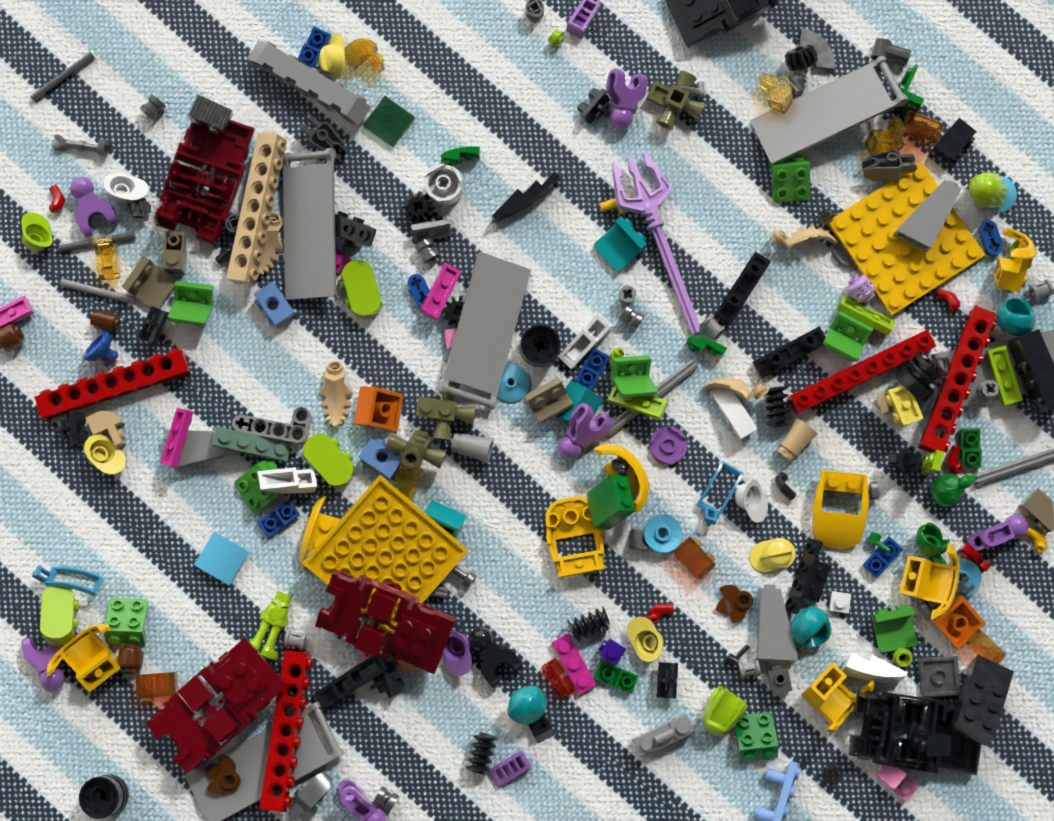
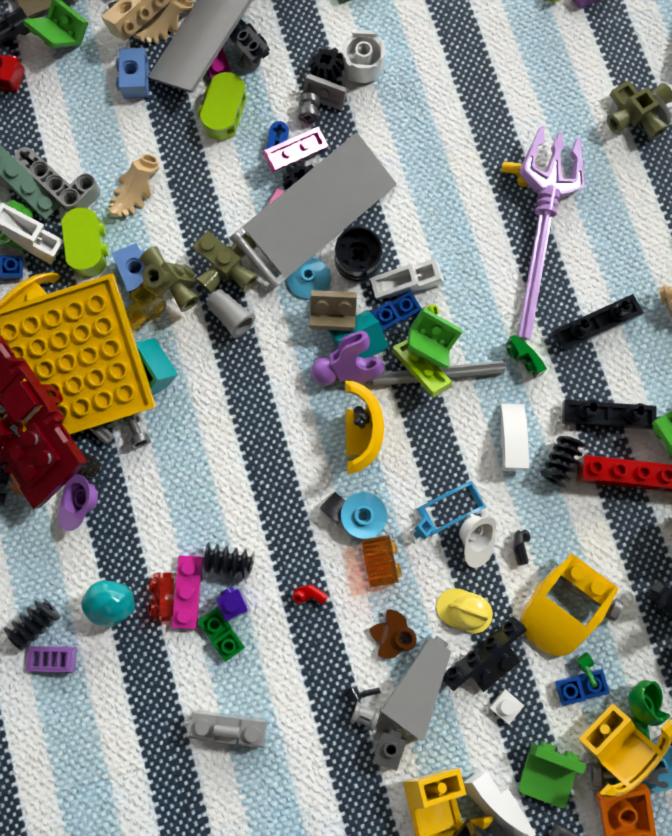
camera: 30 degrees right, 5 degrees down
(378, 408) = (164, 223): orange slope -> none
(454, 156) = (398, 39): green slope -> none
(492, 654) = (110, 528): black piece -> none
(520, 201) = (427, 115): black slope -> none
(541, 729) = (110, 638): black slope -> none
(571, 519) = (281, 444): yellow slope -> none
(597, 107) = (556, 71): black hips -> none
(610, 502) = (329, 447): green brick -> none
(620, 244) = (501, 209): teal bracket -> none
(624, 97) = (589, 75): medium lavender piece -> none
(625, 289) = (480, 255): light grey bush -> none
(627, 315) = (467, 283): flat silver wheel -> none
(645, 639) = (275, 613): light yellow piece -> none
(667, 680) = (270, 671): black hips -> none
(668, 445) = (425, 431): medium lavender tile -> none
(712, 326) = (544, 341): light grey bush -> none
(723, 711) = (308, 744): lime hair -> none
(737, 387) = (533, 416): tan plant -> none
(756, 737) = (326, 795): green bracket -> none
(796, 440) = (563, 505): tan plant -> none
(811, 627) = (459, 714): teal piece -> none
(907, 659) = (539, 818): lime plate -> none

